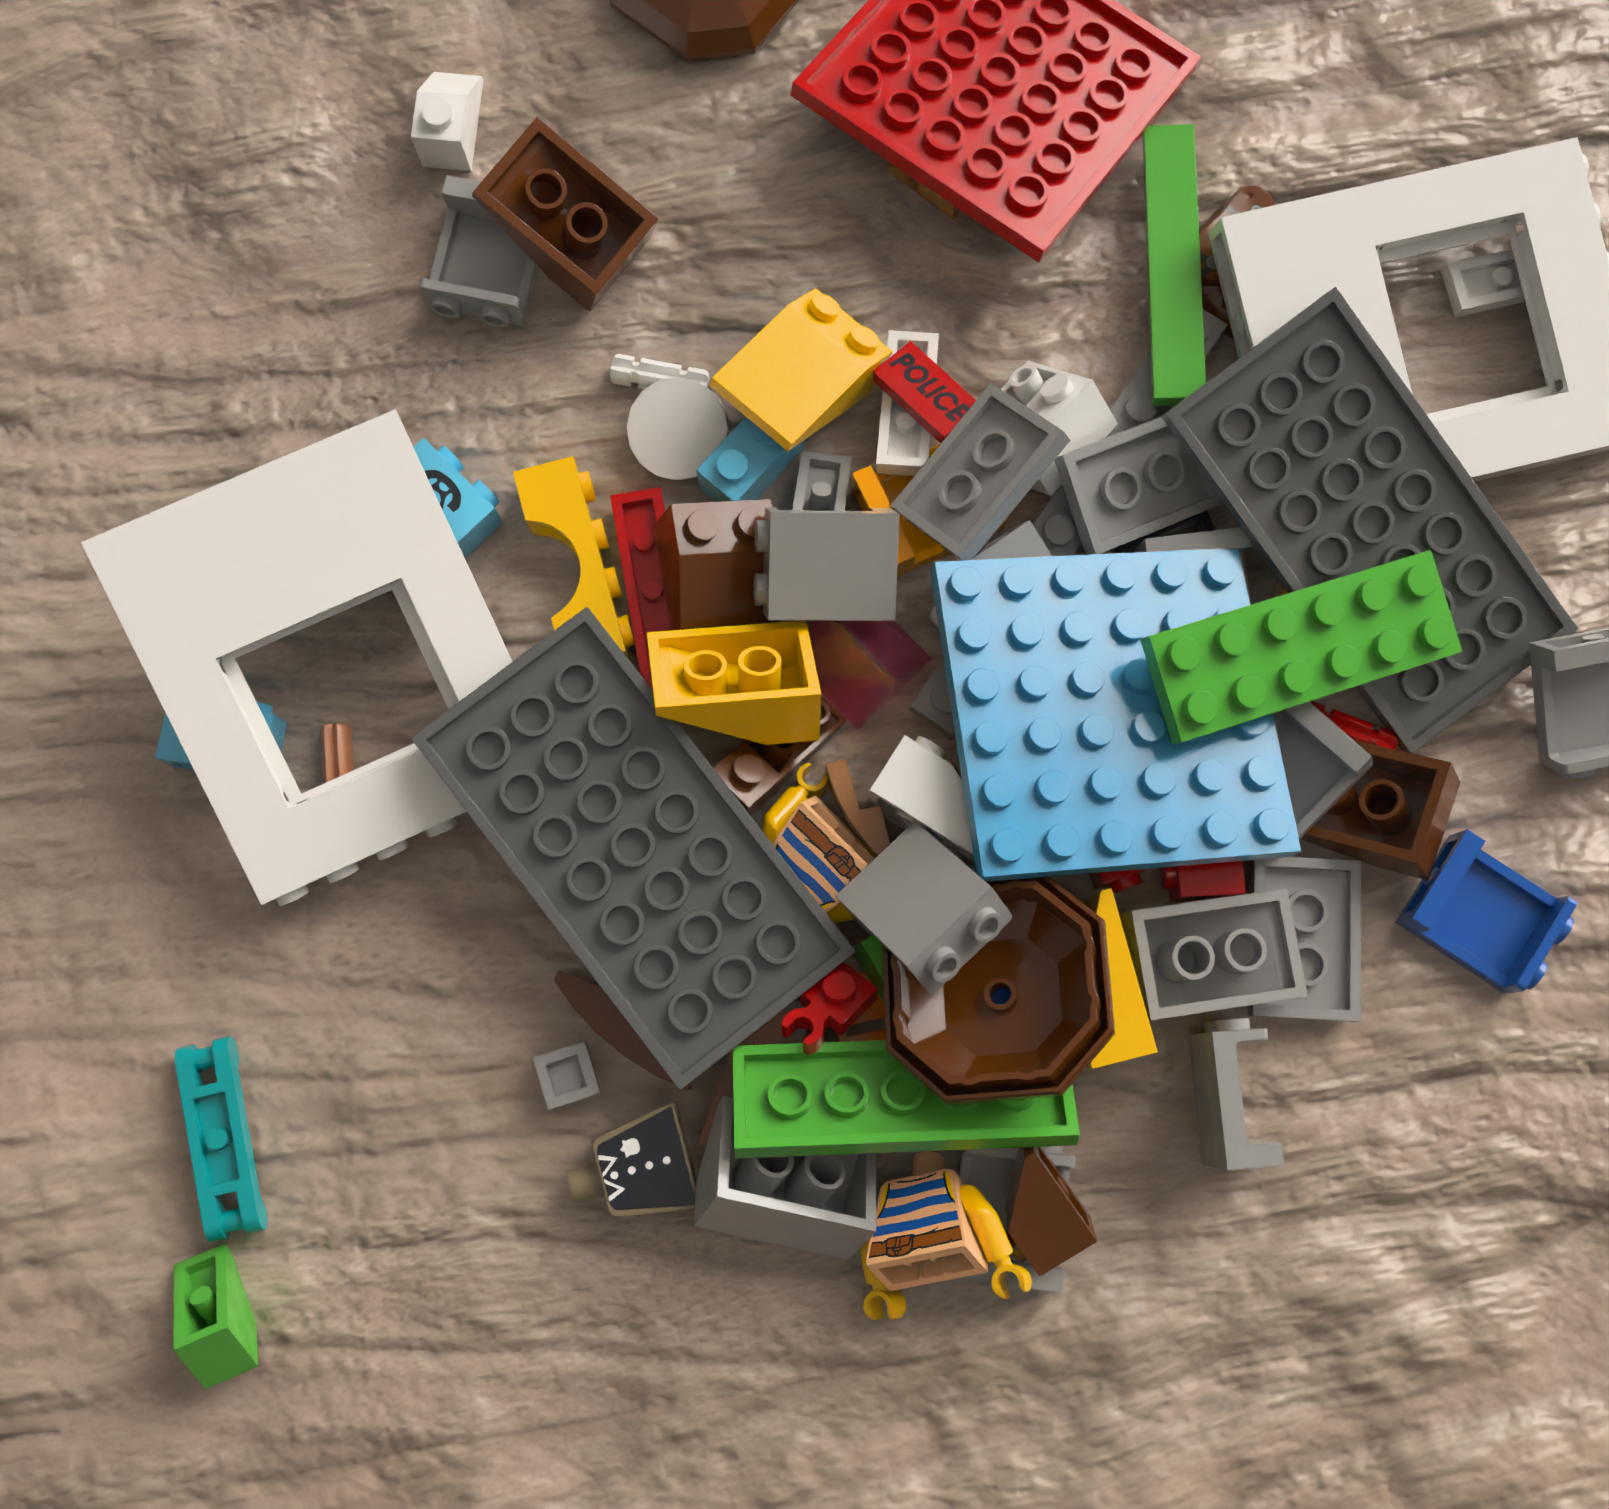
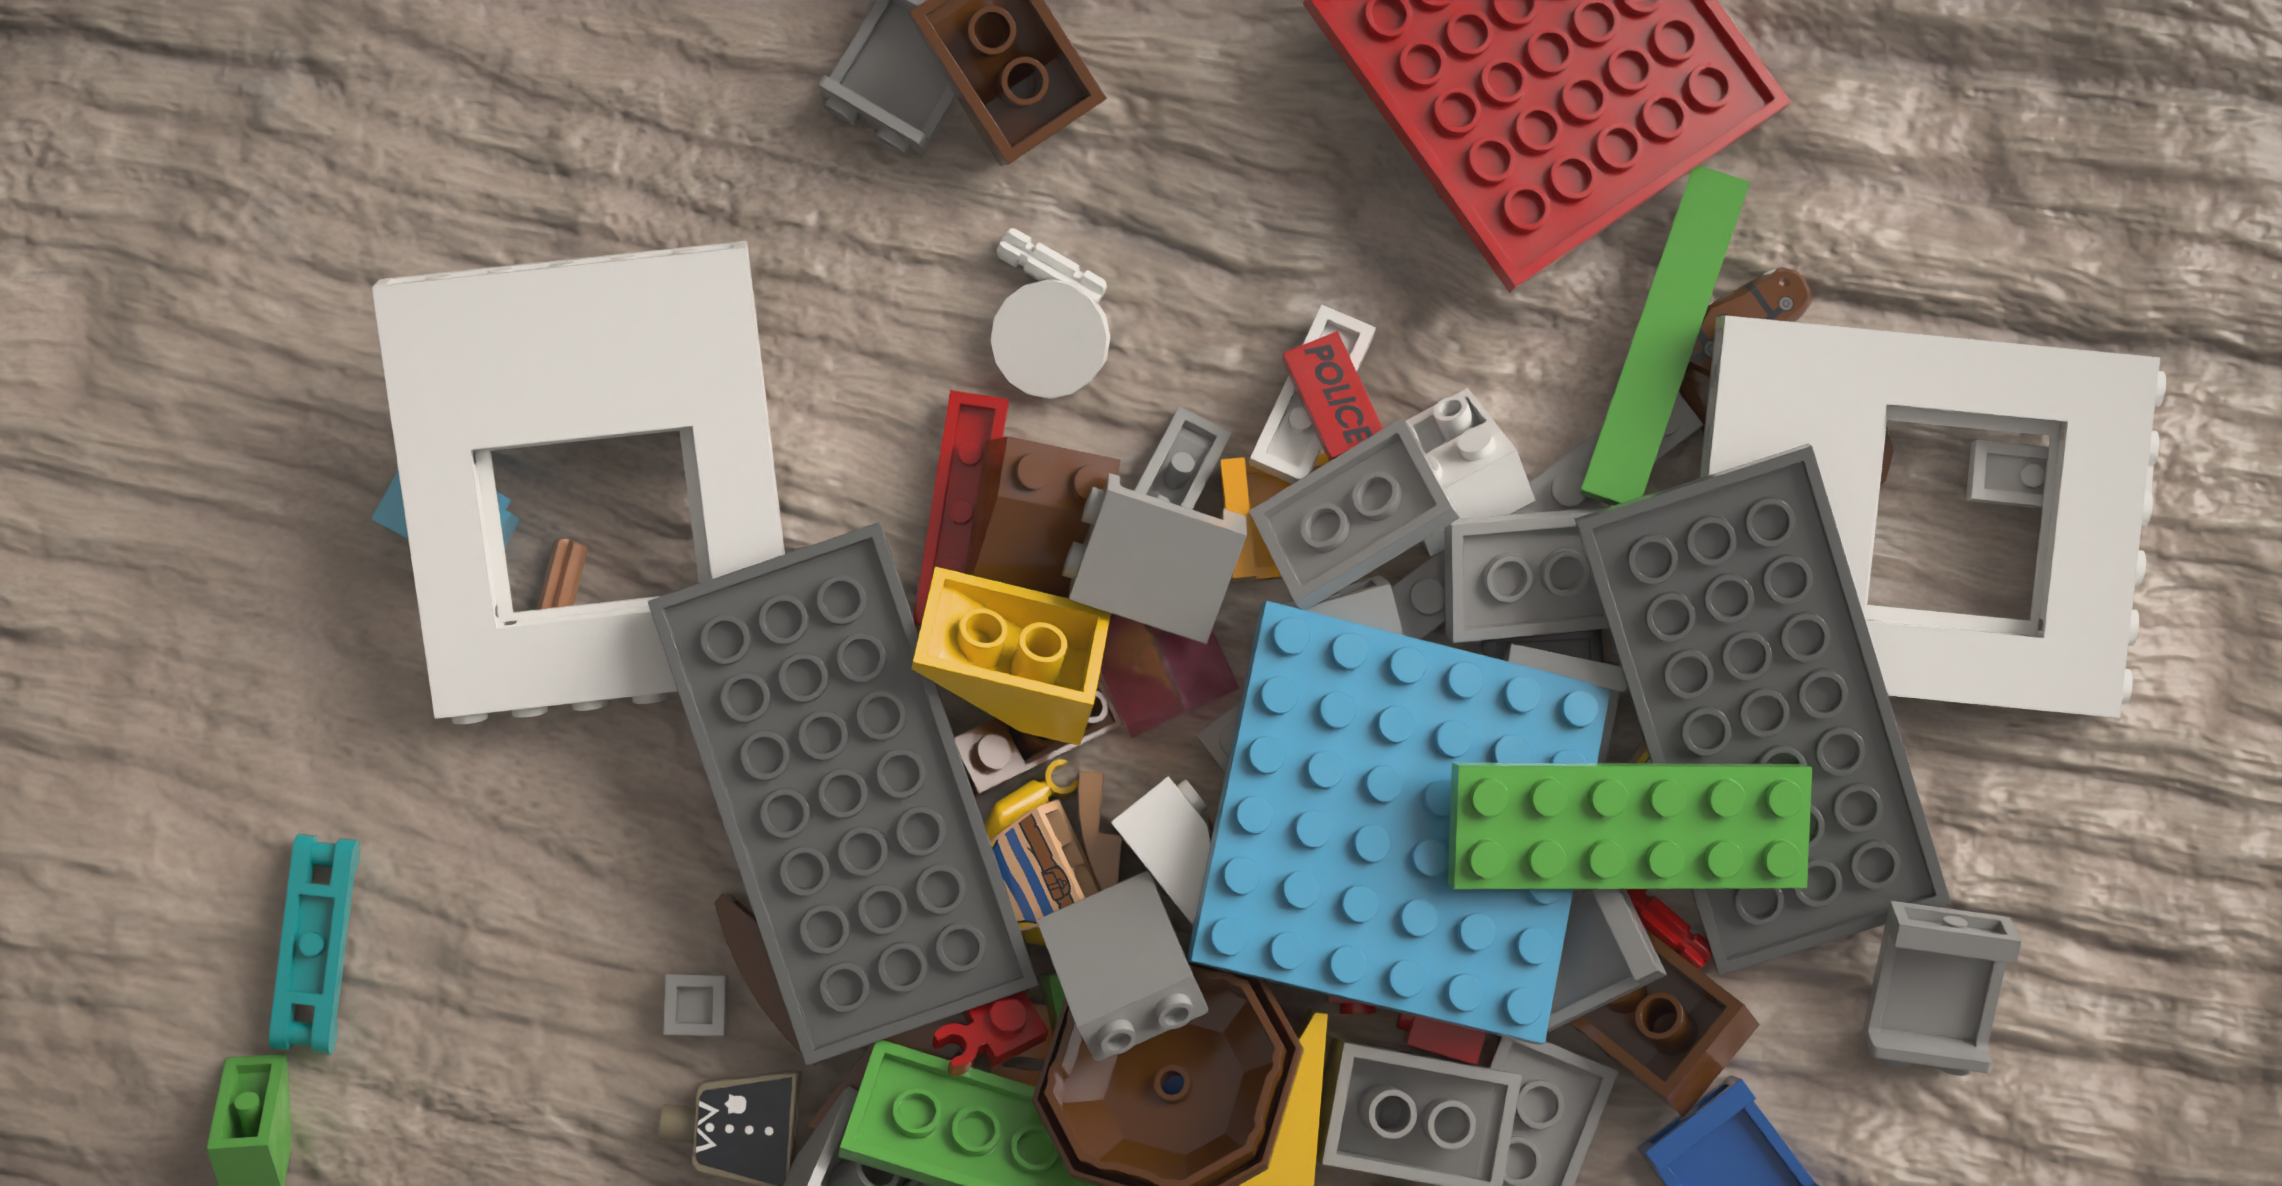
camera: 20 degrees right, 5 degrees up
(466, 506) = (786, 348): medium azure brick -> none
(557, 508) = (890, 379): yellow arch -> none
(744, 464) = (1118, 400): medium azure brick -> none
(802, 369) = (1204, 327): yellow slope -> none

